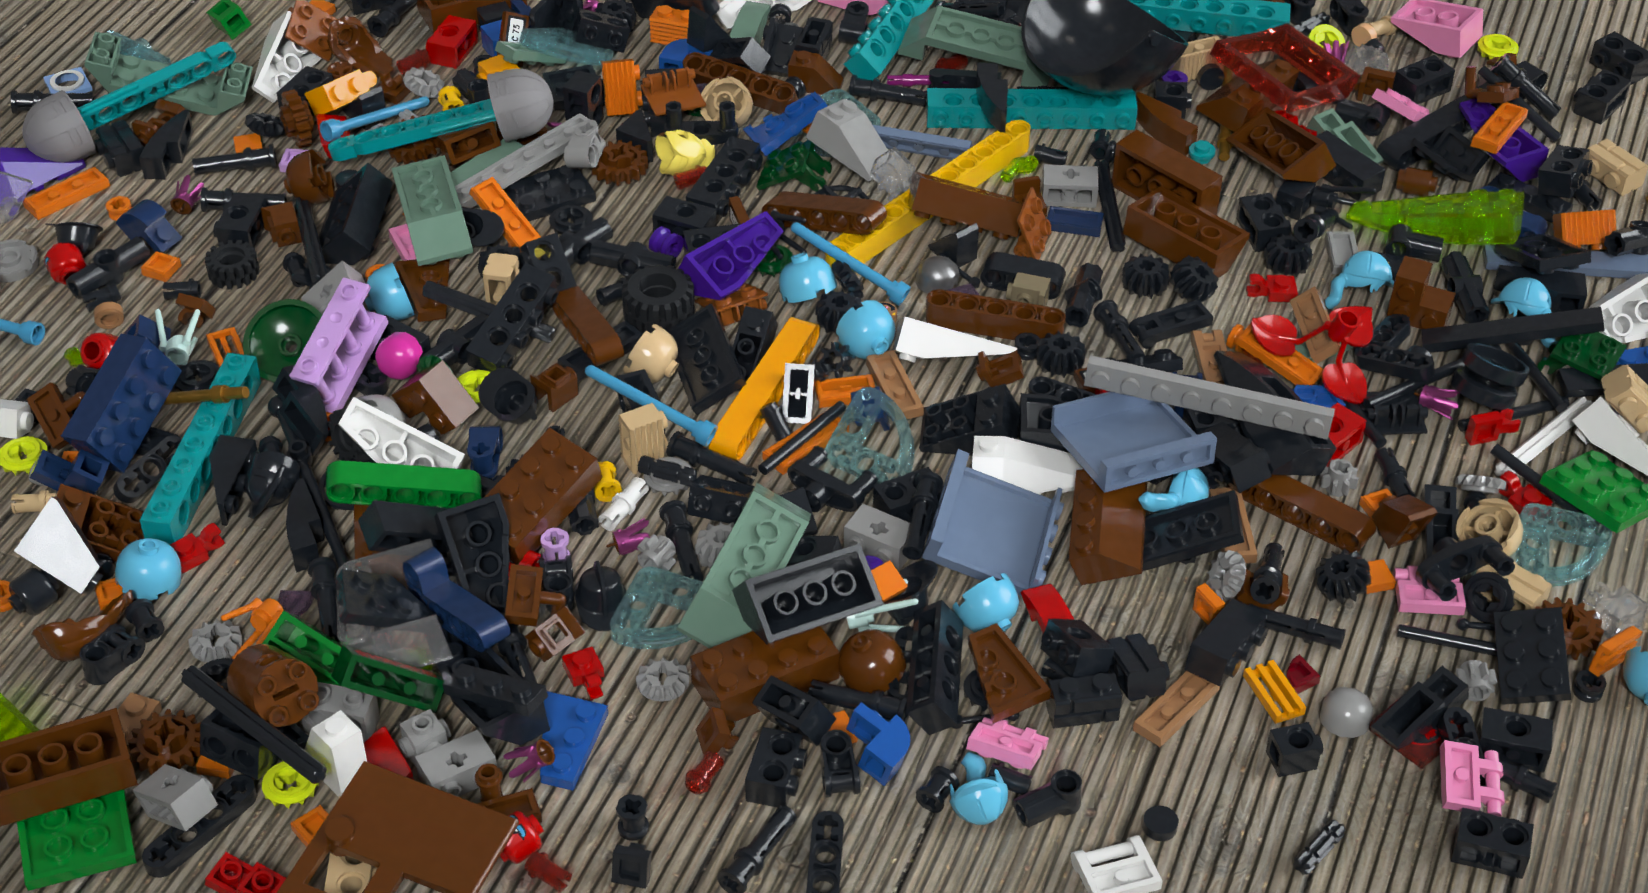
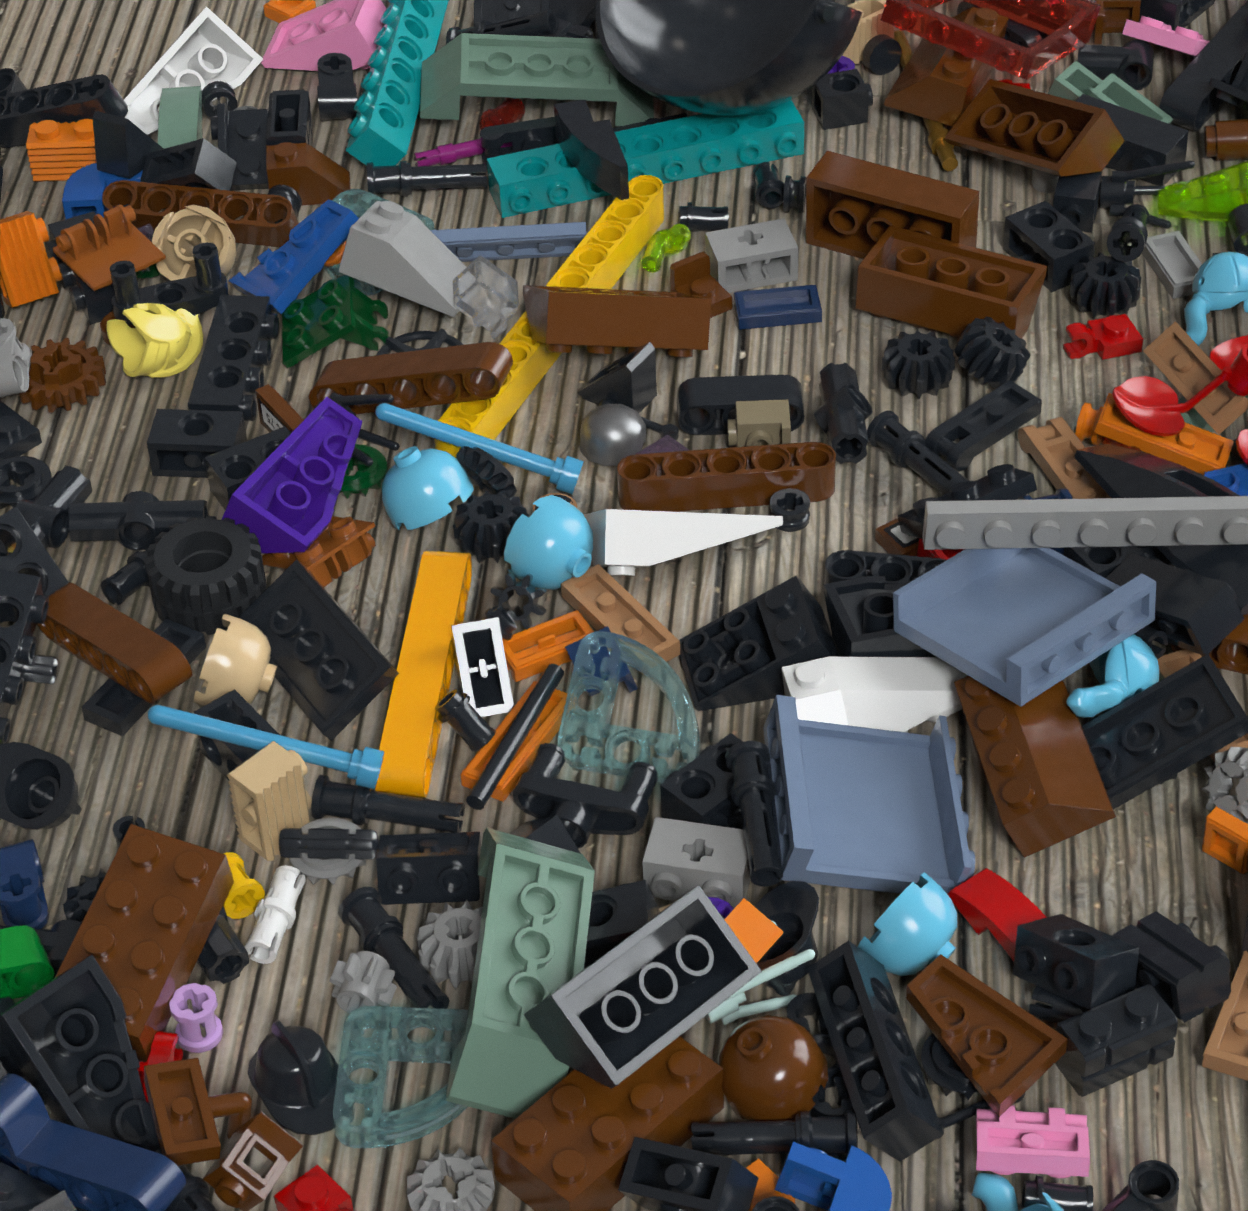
camera: 15 degrees left, 0 degrees up
(558, 384) = (98, 744): reddish brown window -> none
(558, 578) = (222, 1065): black piece -> none
(625, 540) = (309, 968): flat silver piece -> none
(637, 131) = (71, 320): black slope -> none
(665, 243) = (180, 481): dark purple wheel -> none
(689, 177) = (177, 372): clear red pin -> none
(753, 338) = (380, 600): black slope -> none
(1000, 370) = (769, 555): reddish brown bracket -> none
(1033, 227) = (728, 333): dark orange hinge -> none
(1060, 354) = (846, 510): black gear -> none
(1110, 207) = (821, 275): black axle -> none
(1165, 123) = (849, 132): reddish brown slope -> none
(1202, 151) = (916, 161): teal plate -> none

